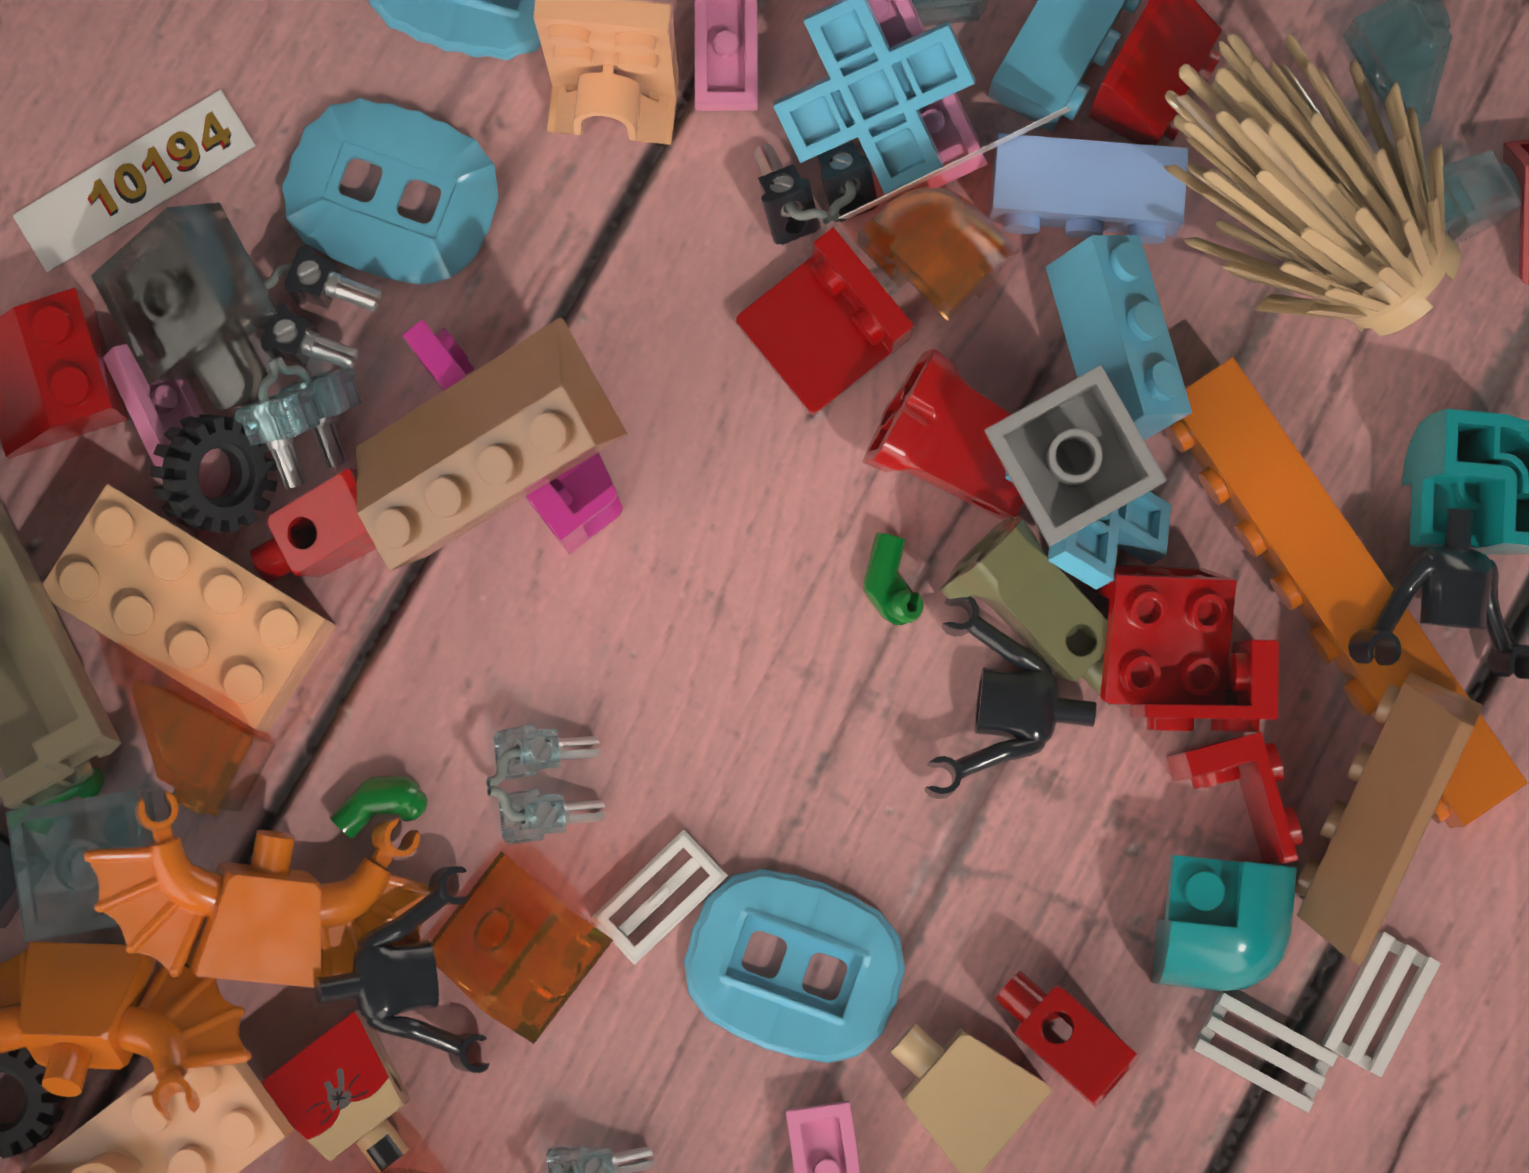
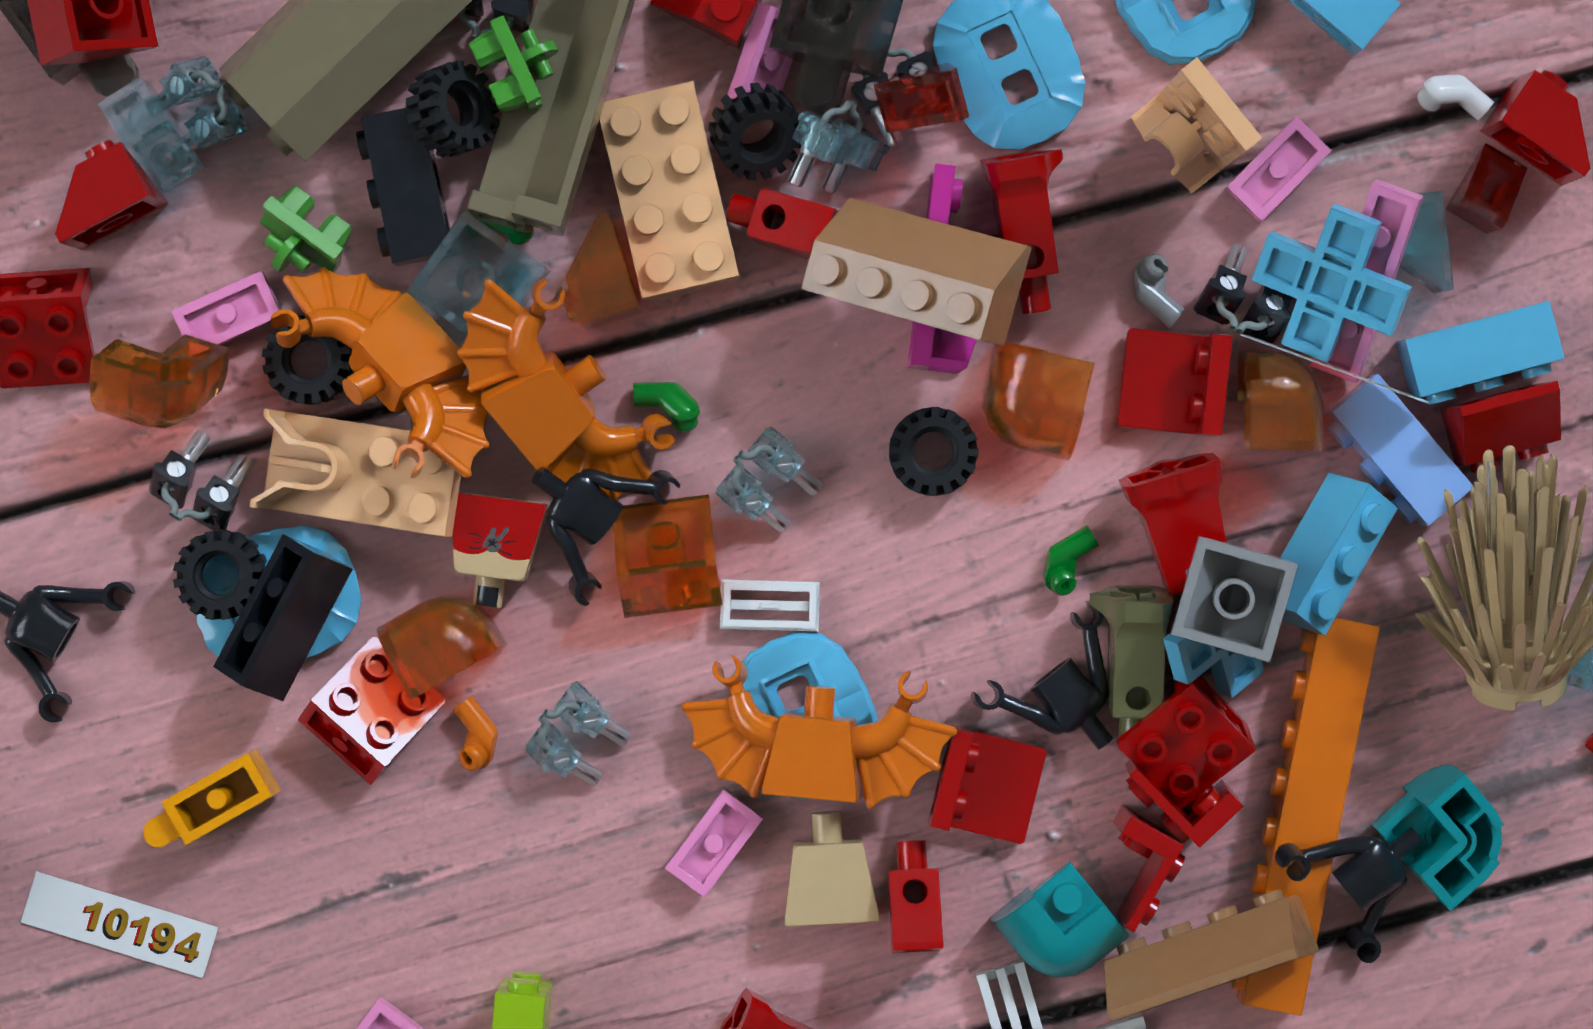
camera: 45 degrees right, 5 degrees up
(333, 292) = (922, 98): none -> clear red slope
(524, 298) = (1024, 216): none -> red piece
(661, 566) = (963, 446): none -> black tyre
(713, 462) = (1036, 398): none -> clear orange brick
(719, 264) = (1150, 289): none -> light grey arm
(835, 988) = (813, 750): none -> orange torso
(1025, 862) = (987, 785): none -> red bracket

